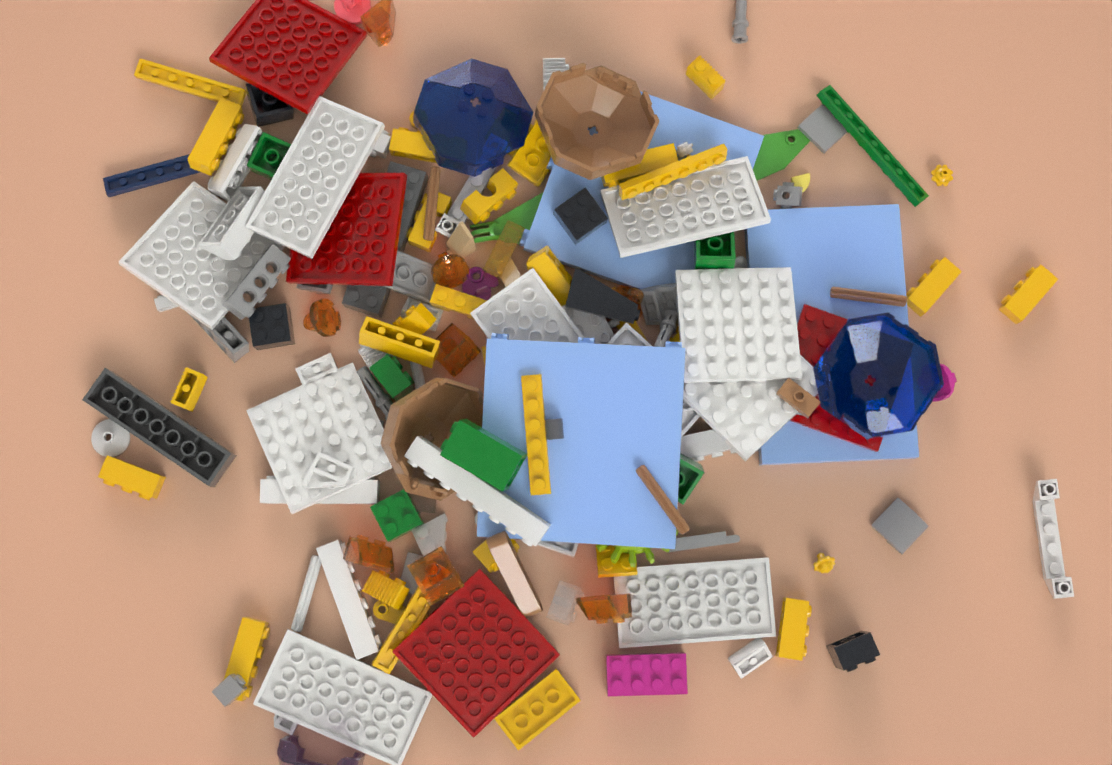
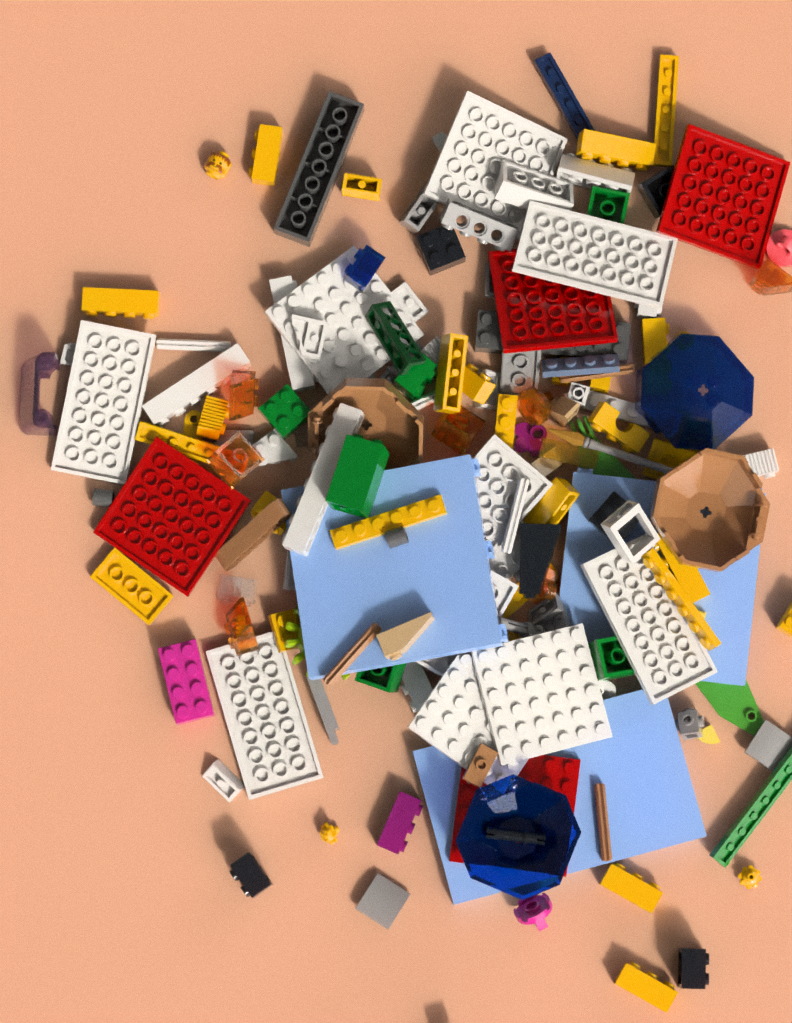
camera: 80 degrees right, 0 degrees up
(116, 445) = (296, 133): white dish -> none
(129, 529) = (217, 165): none -> yellow head
(230, 689) = (90, 296): light grey brick -> none
(272, 404) = (364, 267): none -> clear blue brick
(323, 318) = (459, 296): clear orange tile -> none
(349, 392) = (390, 337): none -> dark green fence
(421, 216) = (580, 365): none -> sand blue plate
(440, 719) = (102, 497): none -> dark grey beam
(492, 236) = (578, 439): none -> light grey piece
(556, 310) = (515, 515): none -> white axle
(586, 207) = (621, 517): none -> white window
(659, 447) = (400, 638): none -> tan slope
(684, 149) = (709, 607): white plate -> none
(793, 629) = (259, 815): yellow brick -> none
(828, 492) = (400, 823): none -> magenta brick
(873, 374) = (516, 835): none -> black pin
(1021, 245) = (692, 968): none -> black brick

